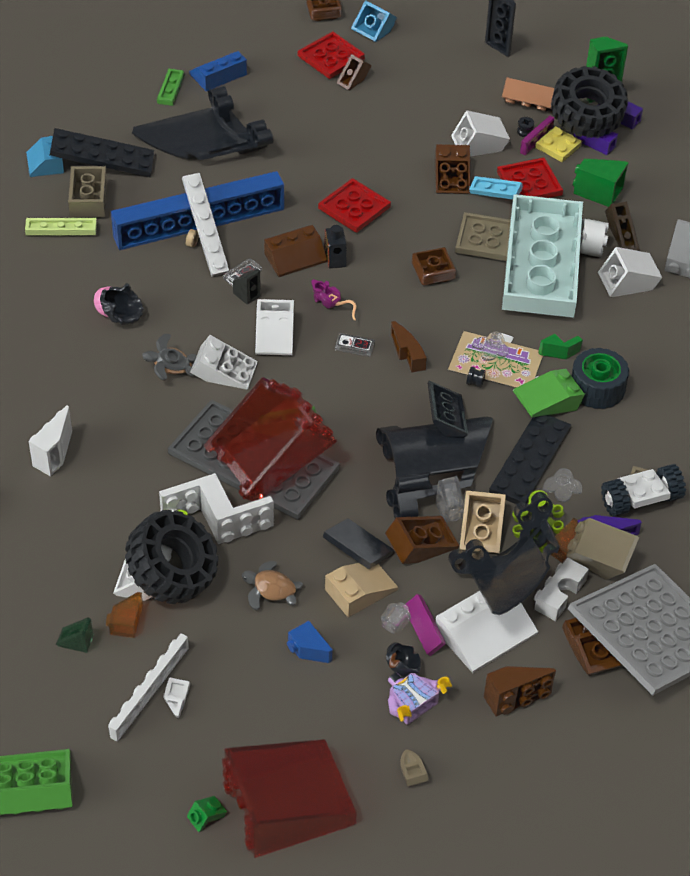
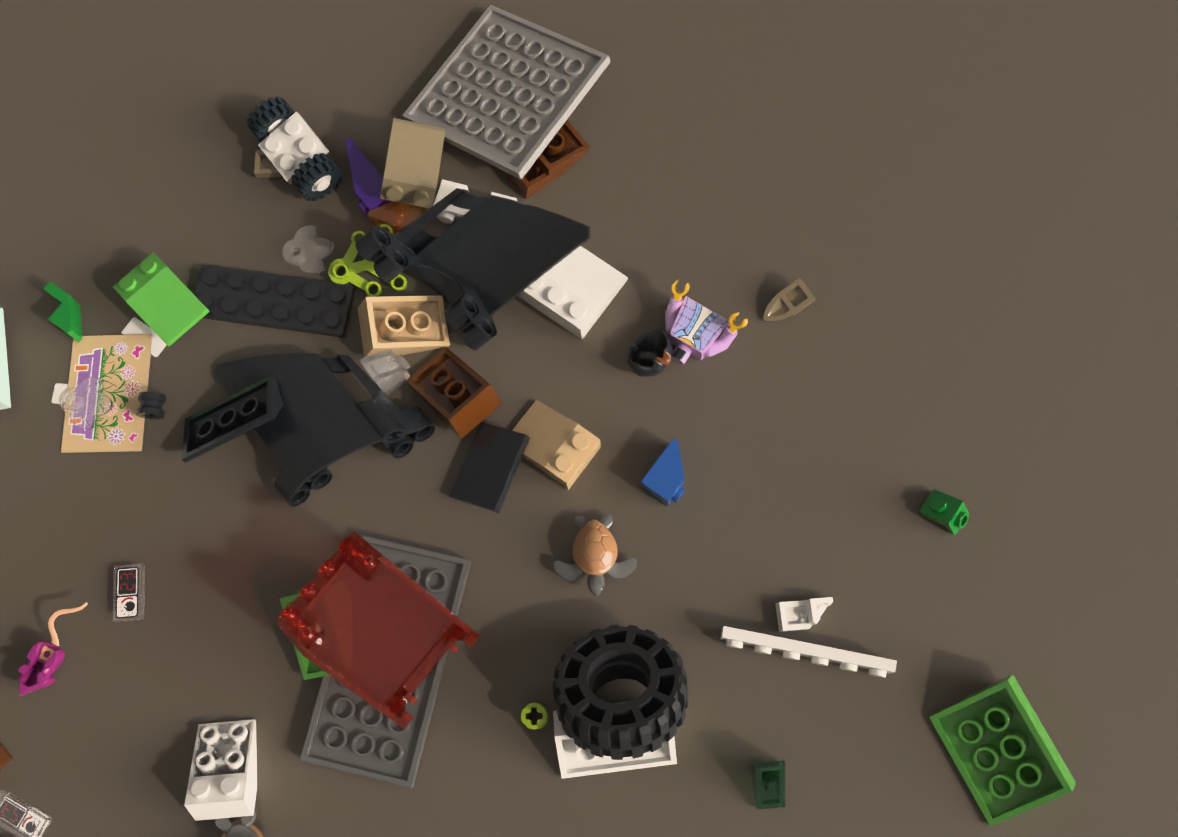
camera: 100 degrees left, 25 degrees up
(125, 616) = (716, 727): clear orange slope -> none
(223, 519) = (503, 671): white bracket -> none
(247, 286) = (52, 794): pearl dark grey slope -> none
(274, 327) = (130, 718): white slope -> none
(287, 793) = (896, 420): clear red windscreen -> none
(395, 617) = (588, 384): clear head -> none
(408, 347) = (118, 514): reddish brown slope -> none
(425, 625) = (586, 348): magenta tile -> none
(517, 687) = (652, 219): reddish brown slope -> none
(601, 377) = (111, 241): black wheel -> none

